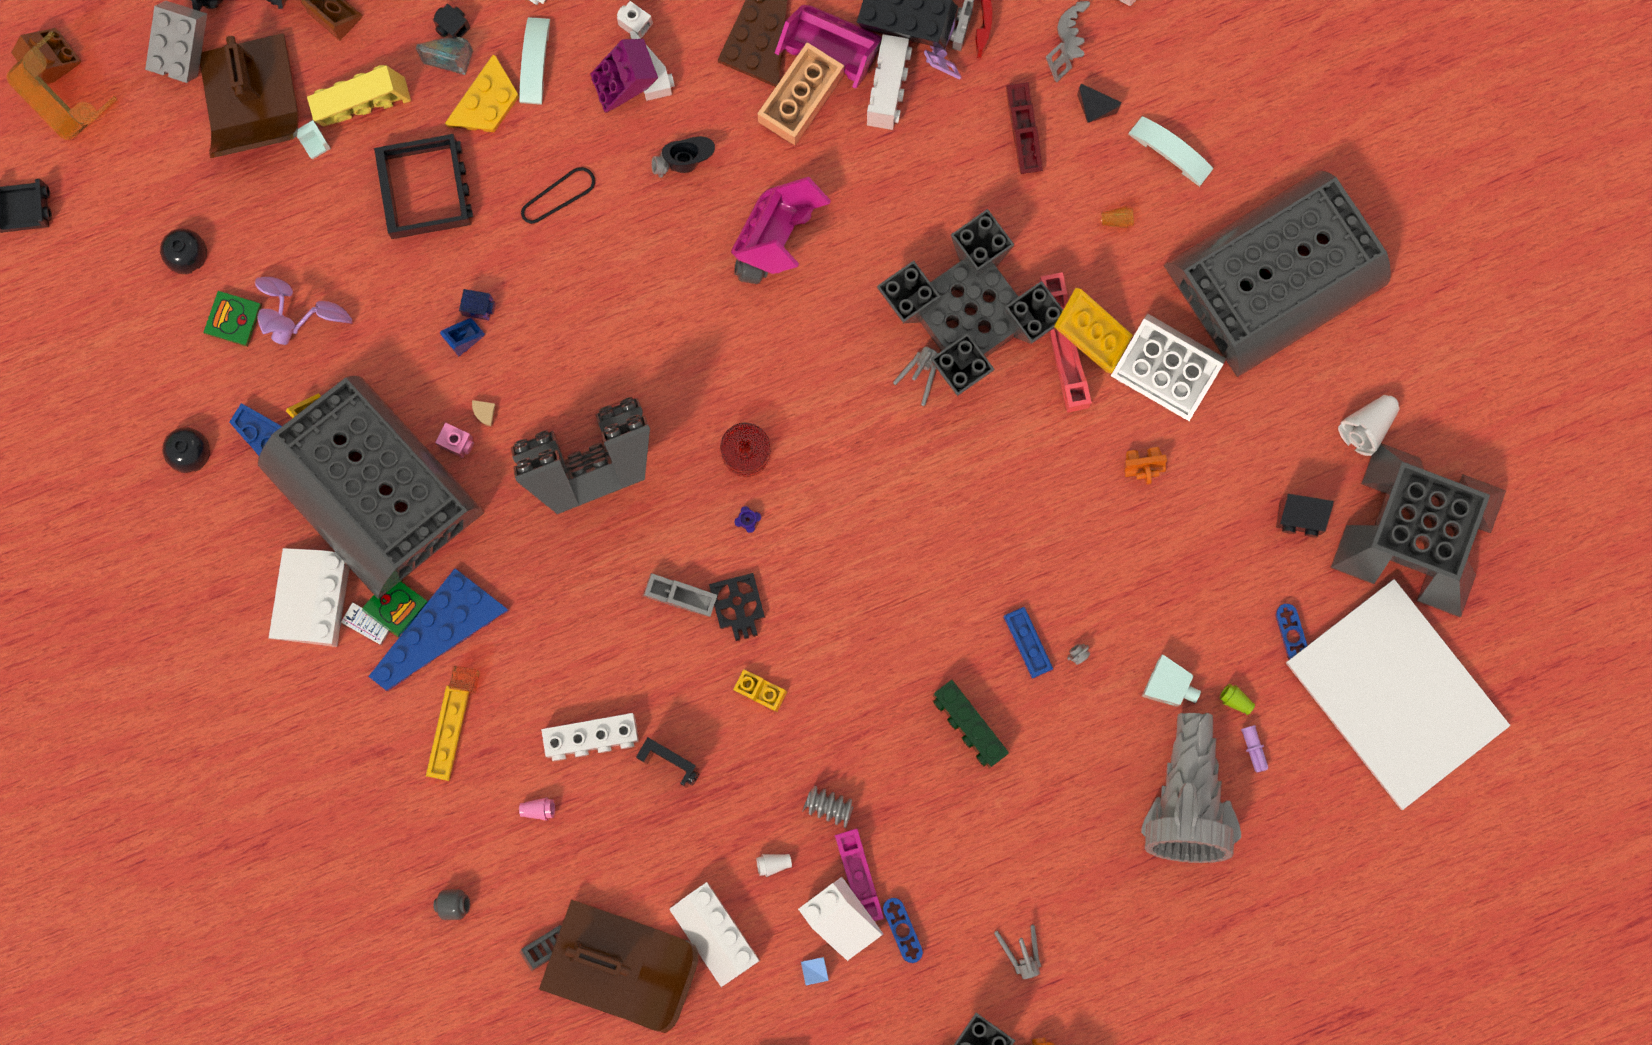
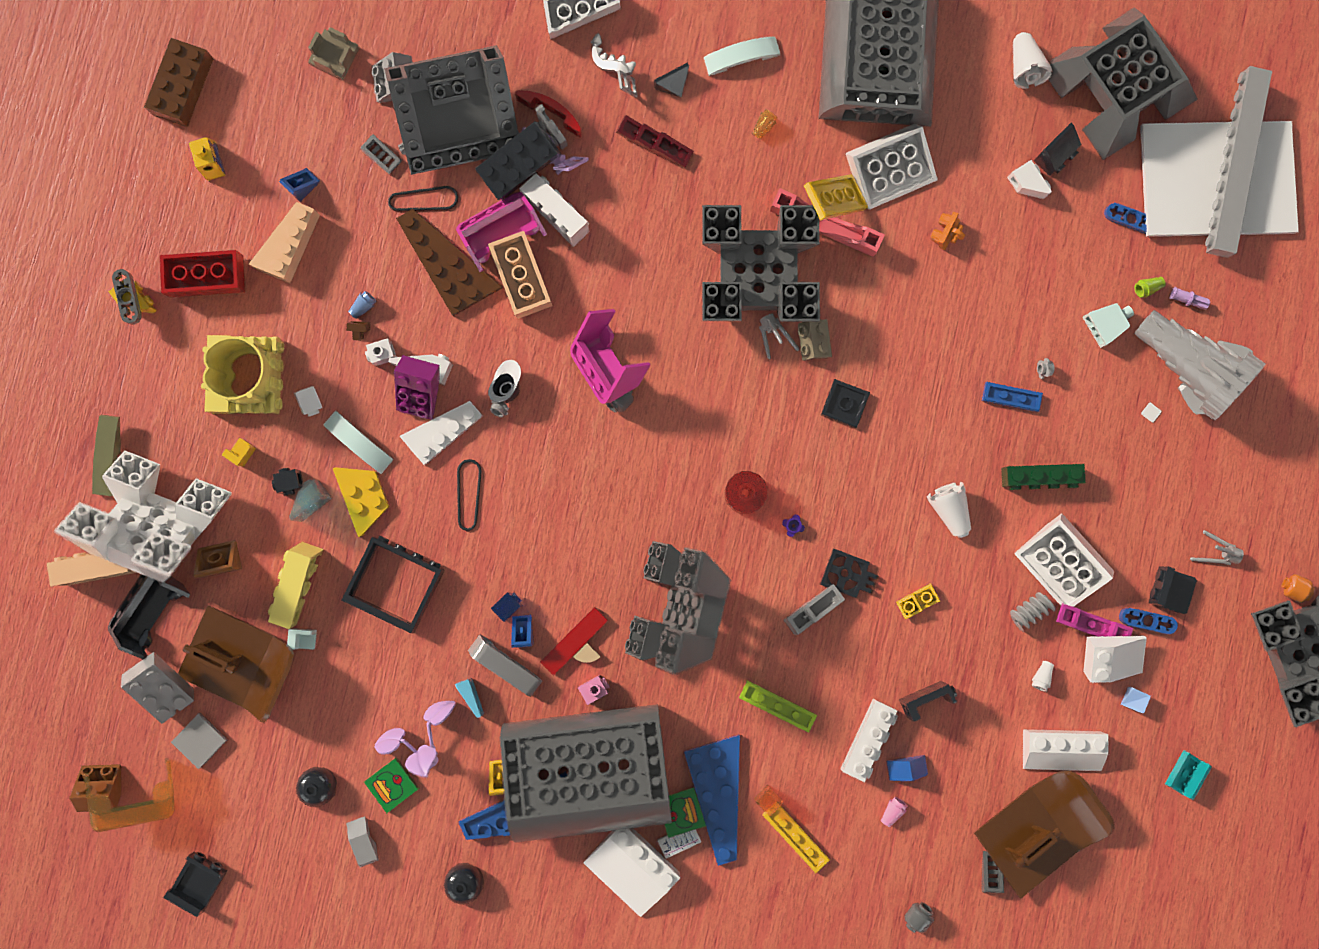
camera: 55 degrees left, 5 degrees up
(152, 115) = (199, 741): none -> light grey tile
(159, 328) = (361, 842): none -> light grey slope
(369, 328) = (470, 695): none -> medium azure slope
(417, 341) = (504, 666): none -> light grey beam
(488, 391) = (573, 641): none -> red tile
(562, 627) = (778, 706): none -> lime tile
(590, 794) = (907, 768): none -> blue slope
(595, 127) = (434, 436): none -> white wing
(873, 658) = (952, 508): none -> white cone
(901, 805) = (1064, 562): none -> white slope
(903, 486) = (845, 403): none -> black tile
(943, 413) = (814, 340): none -> dark tan bracket
(950, 932) = (1172, 590): none -> black bracket
(1113, 791) = (1151, 412): none -> white sticker
(1252, 508) = (1029, 181): none -> white slope
(1425, 697) = (1238, 162): none -> light grey brick

